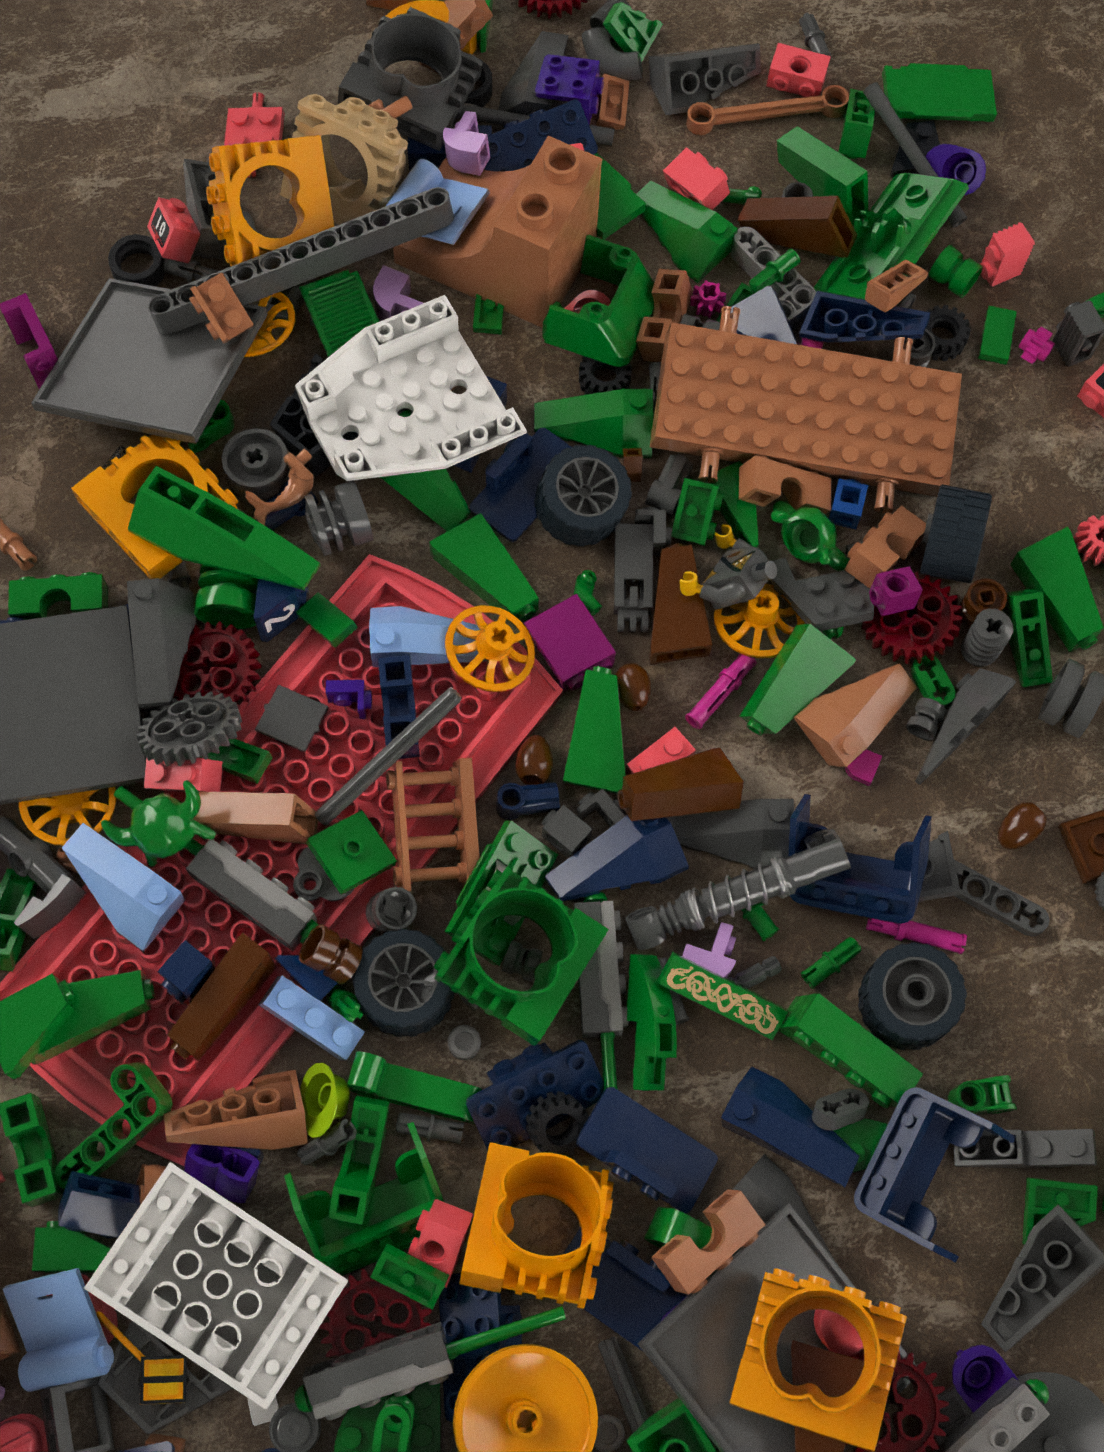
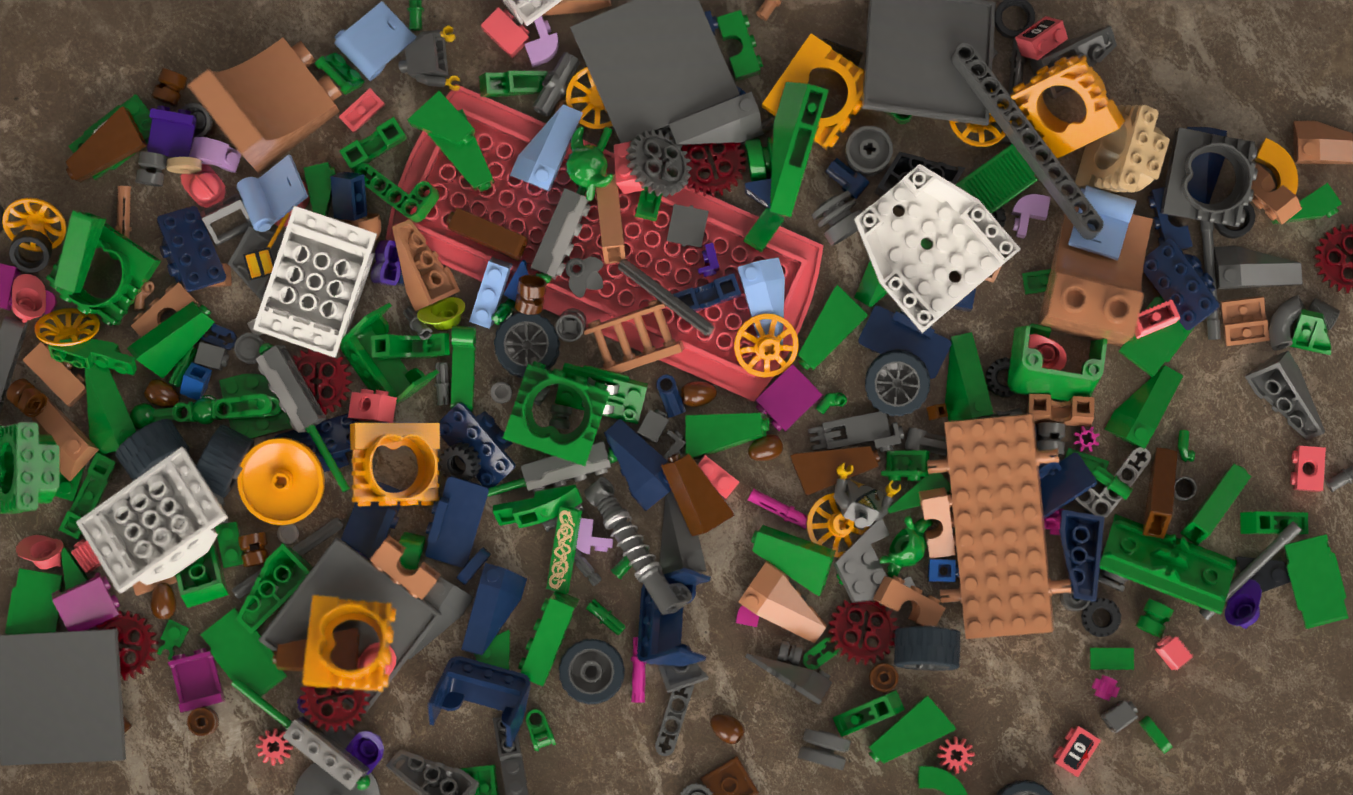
camera: 85 degrees right, 15 degrees up
(43, 915) = (518, 104): dark grey slope -> none
(185, 972) = (497, 209): dark blue brick -> none
(221, 307) = (969, 95): nougat bracket -> none
(254, 124) = (1149, 69): coral plate -> none
(299, 485) = (854, 185): nougat animal -> none
(351, 852) = (602, 289): green plate -> none
(396, 108) = (1167, 172): nougat arm -> none
(409, 1276) = (348, 393): green plate -> none
(465, 146) = (1155, 232): lavender brick -> none
(571, 79) = (1241, 296): dark purple bracket -> none
(697, 180) = (1184, 410): coral brick -> none
(718, 1141) = (474, 565): none -> dark blue beam
(767, 110) = (1269, 451): nougat piece -> none
(840, 1109) = (509, 638): dark grey beam -> none
(892, 286) = (1104, 572): nougat slope -> none
(895, 591) = (879, 616): magenta brick -> none
(986, 637) = (865, 683): dark grey piece -> none

